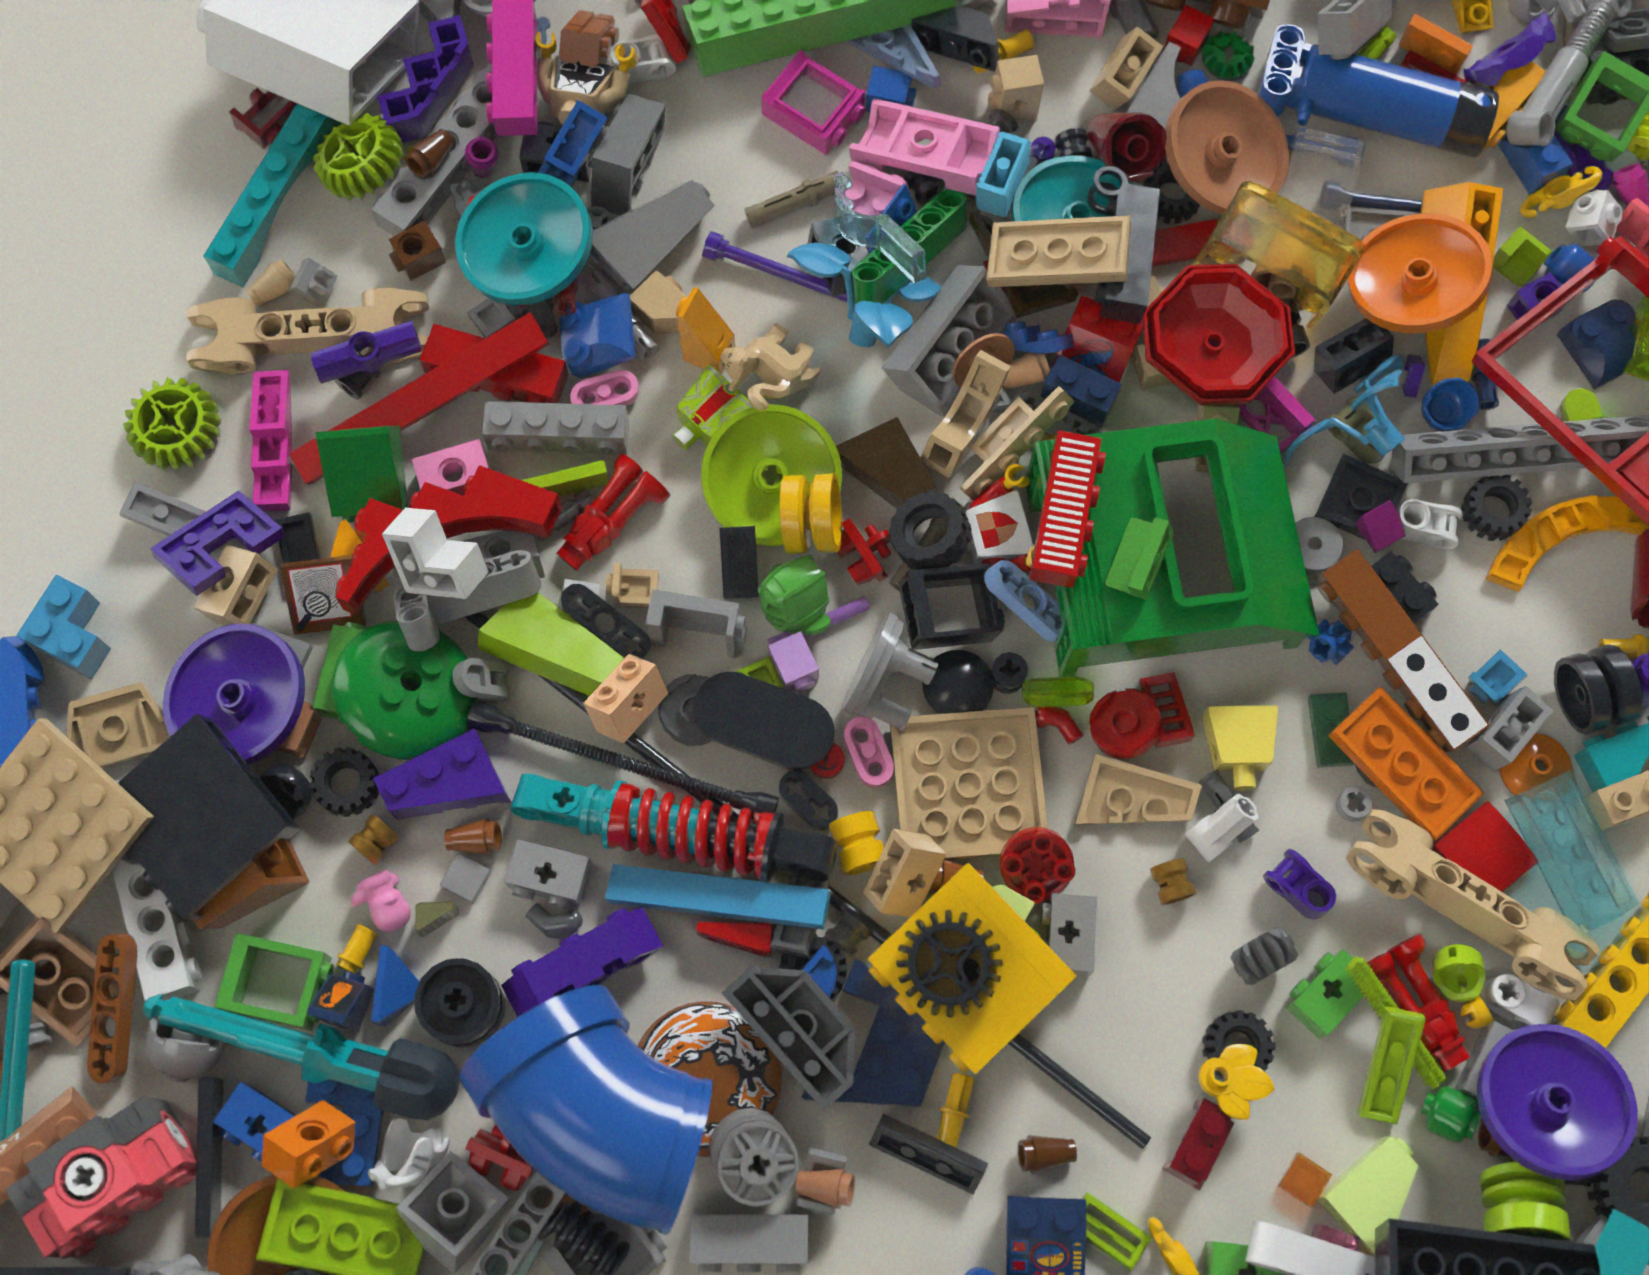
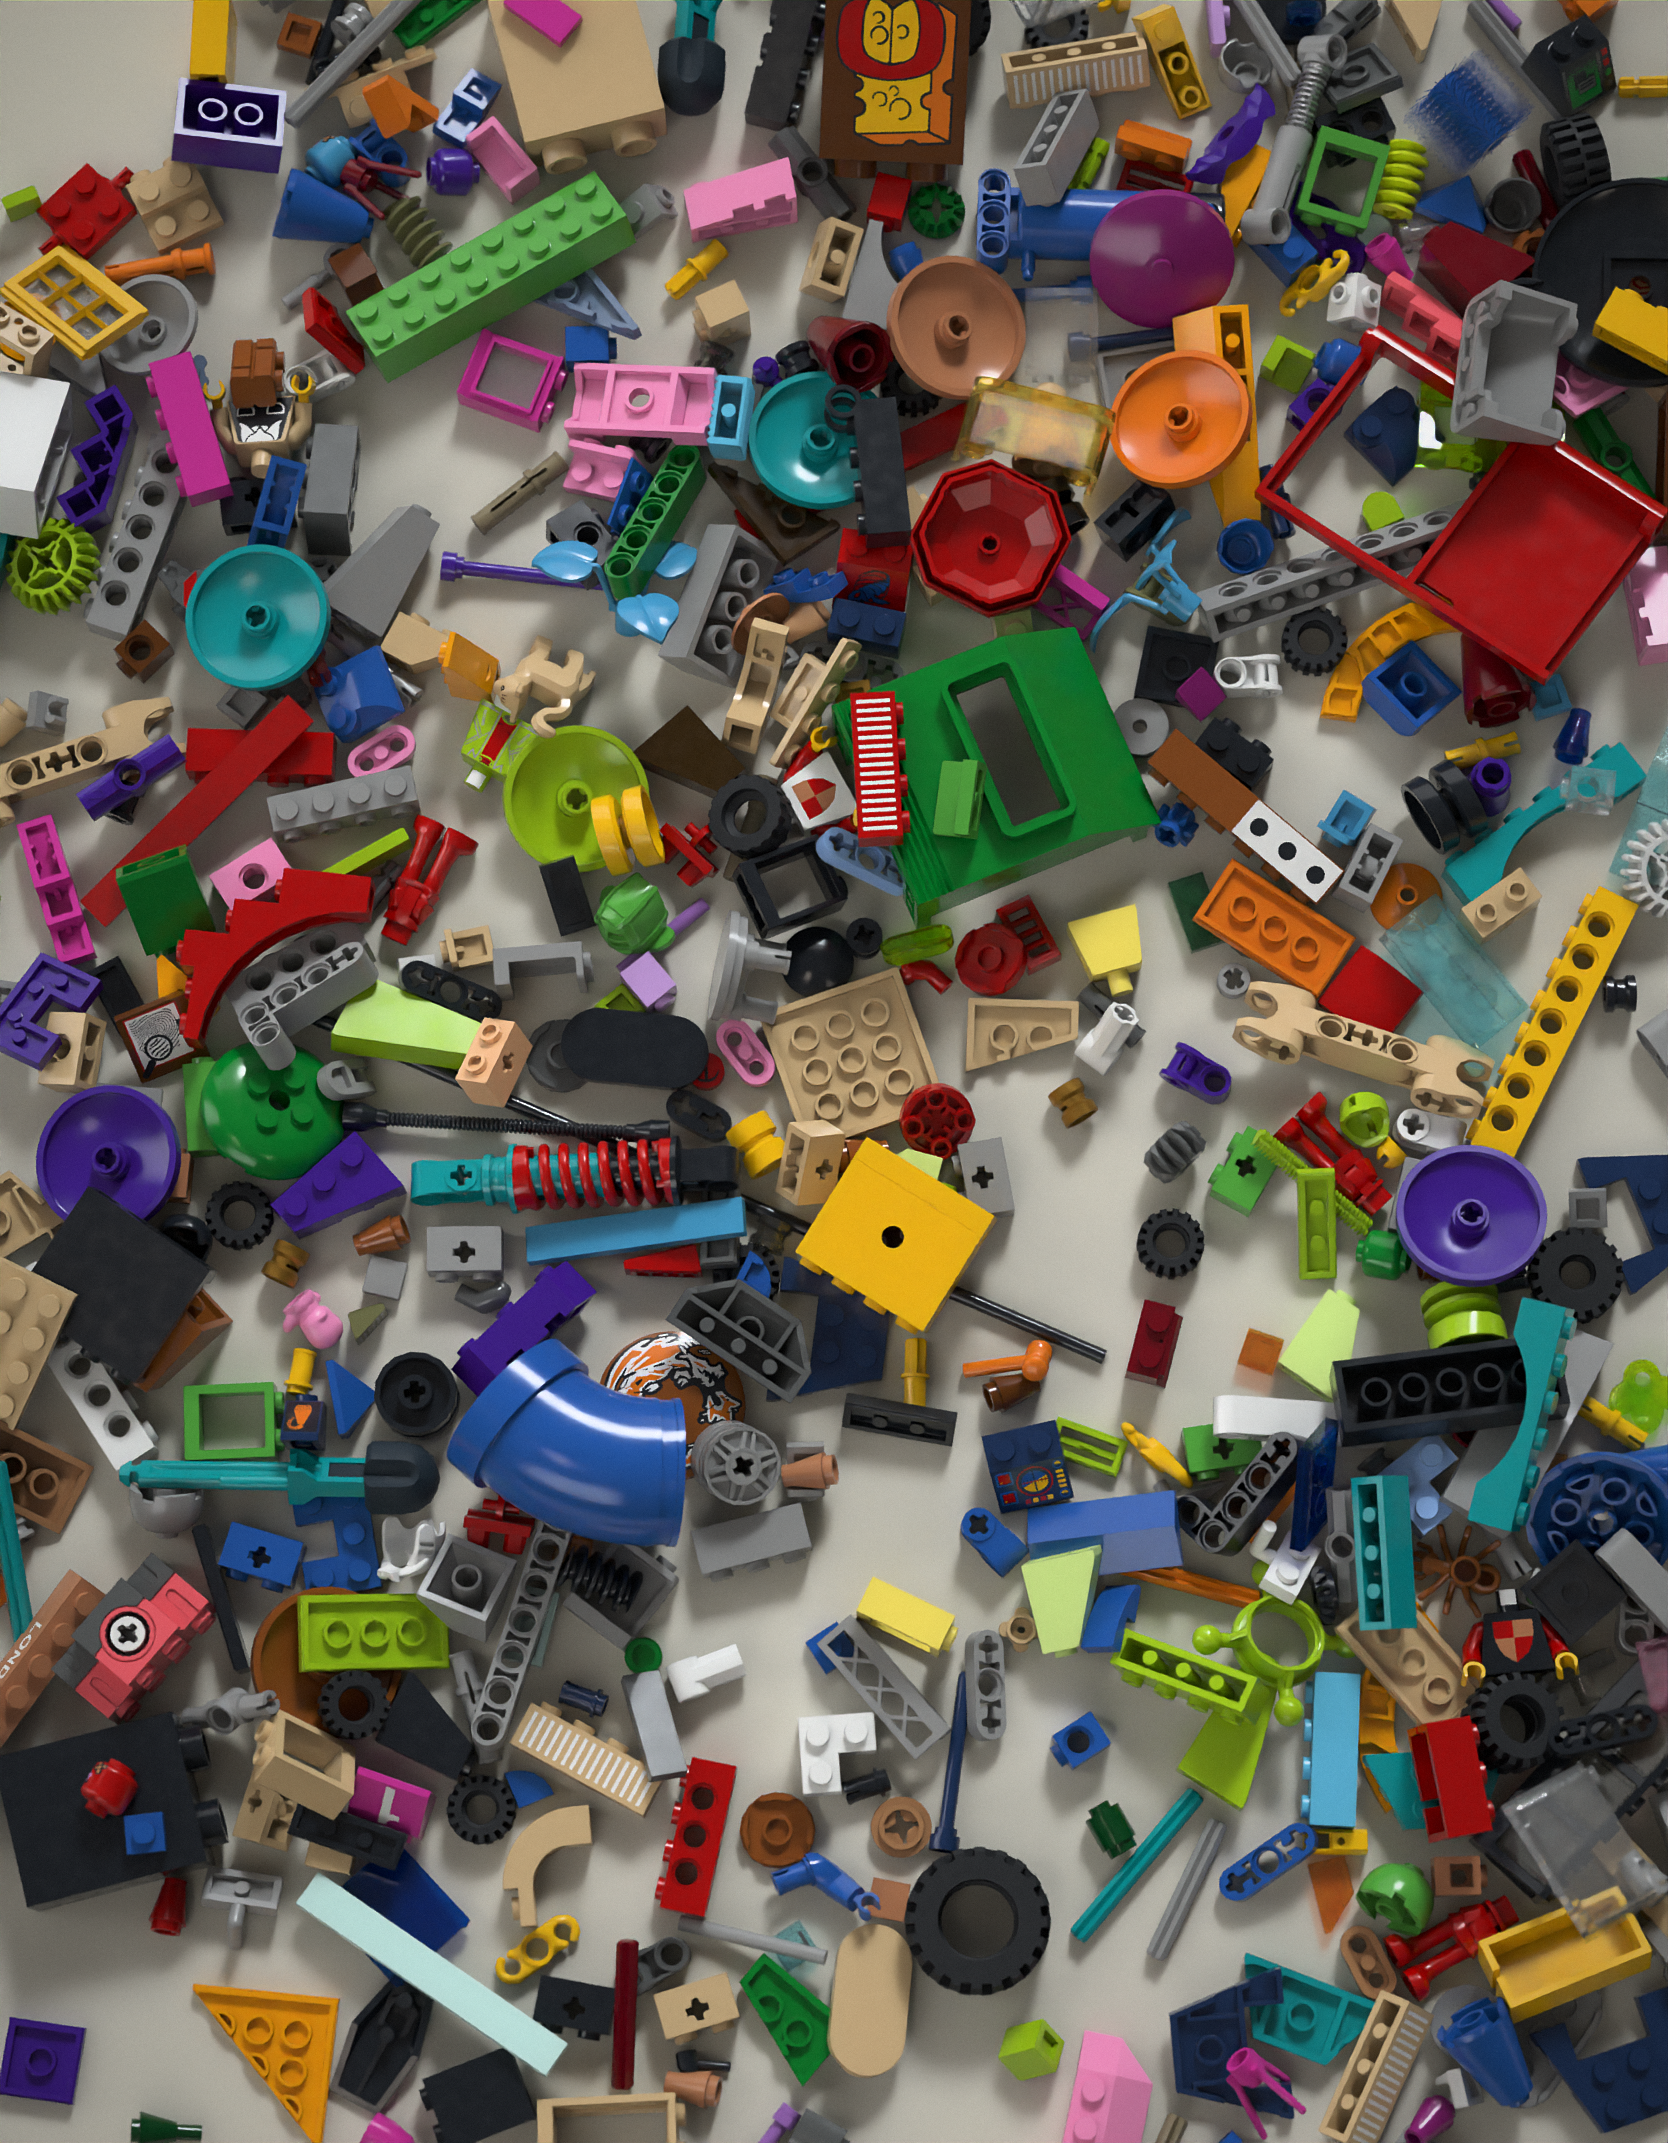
camera: 10 degrees left, 5 degrees up
(106, 1006) = (80, 1487): dark orange beam -> none
(308, 1144) = (316, 1558): orange brick -> none
(428, 154) = (129, 548): reddish brown cone -> none
(428, 560) = (269, 979): white brick -> none
(482, 156) = (184, 525): magenta cone -> none
(878, 232) = (618, 520): clear light blue piece -> none
(922, 984) = (893, 1209): black gear -> none
(959, 35) = (646, 267): black slope -> none
(1059, 251) = (808, 492): tan tile -> none
(1075, 1132) = (1033, 1364): none -> orange piece
(1241, 1082) = (1176, 1275): yellow plate -> none
(1335, 1236) = (1298, 1393): clear pink tile -> none
(1415, 367) = (1203, 521): dark purple tile -> none
(1429, 130) = (1161, 257): none -> magenta dish
(1578, 574) = (1408, 690): none -> blue slope

